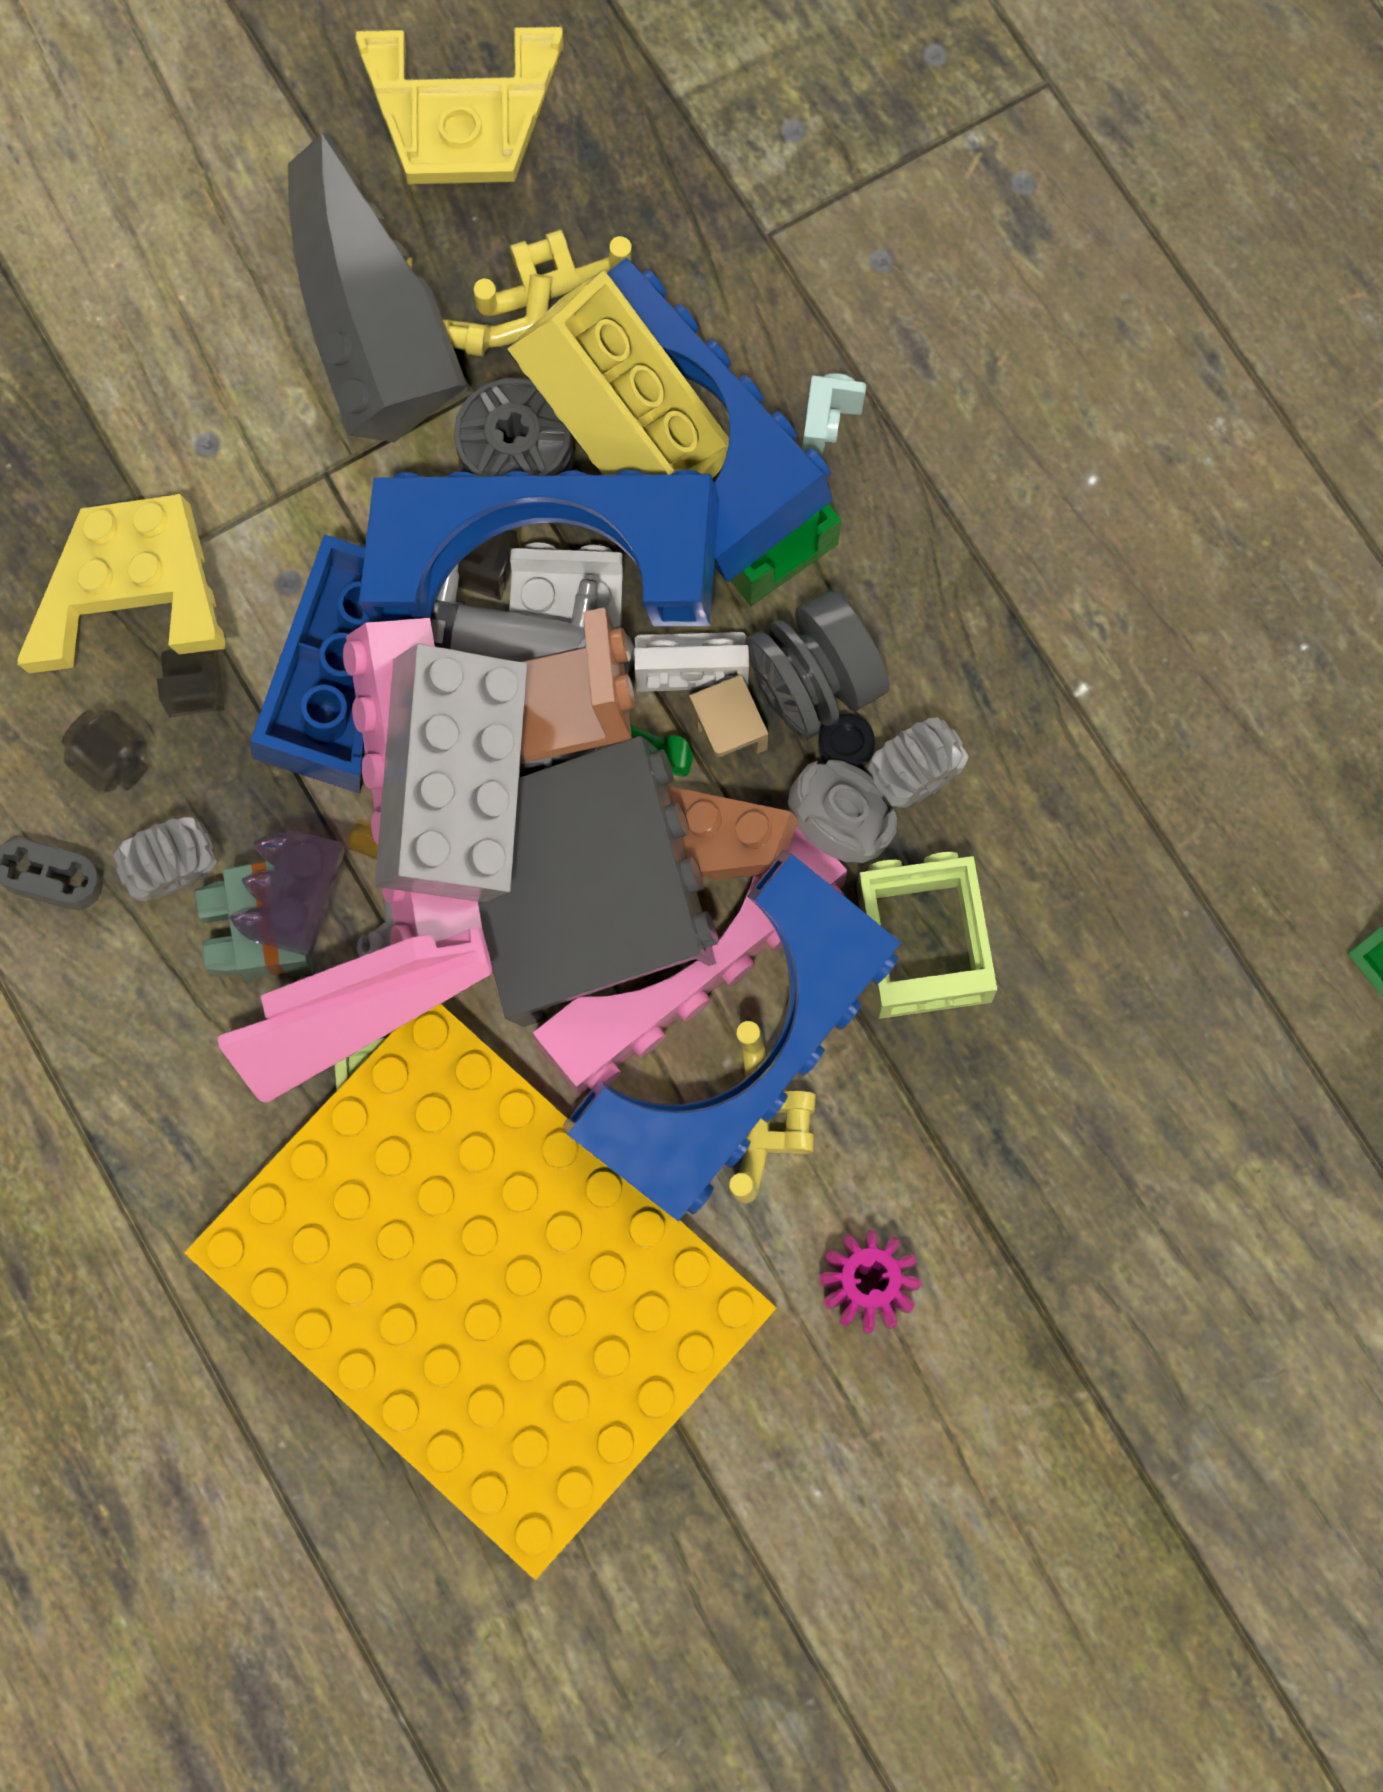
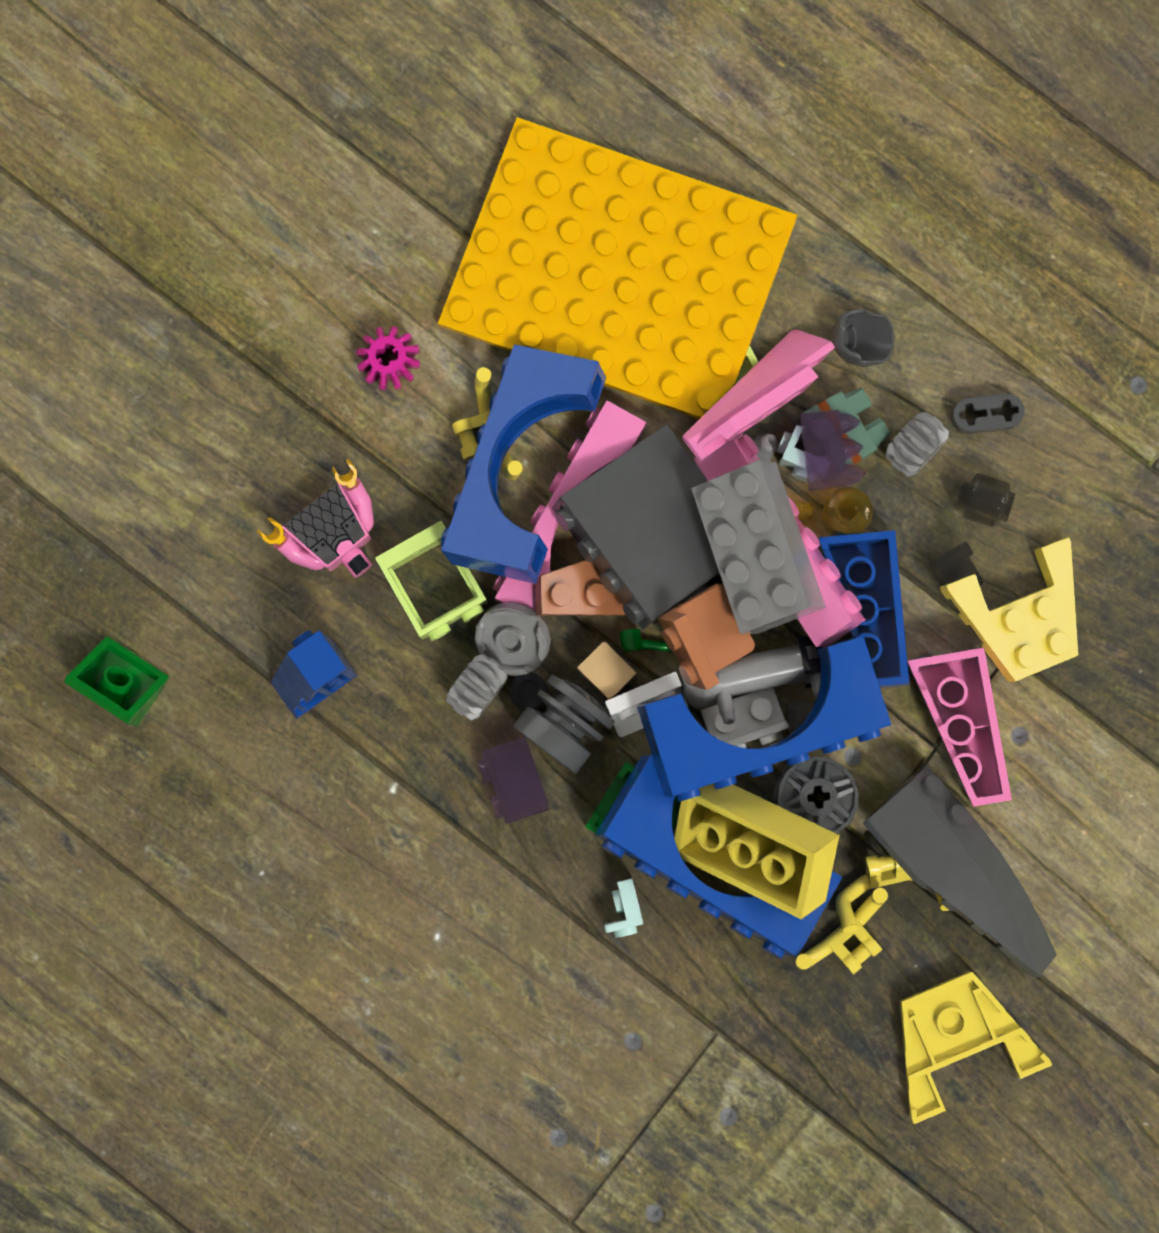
camera: 160 degrees right, 10 degrees up
(170, 1040) = (863, 338): none -> dark grey hair
(266, 483) = (964, 713): none -> bright pink wedge
(300, 786) = (855, 504): none -> clear yellow head
(348, 920) = (792, 457): none -> light aqua bracket
(912, 625) = (514, 781): none -> clear purple brick
(1049, 1063) = (329, 528): none -> torso
(1137, 861) = (311, 672): none -> blue wedge

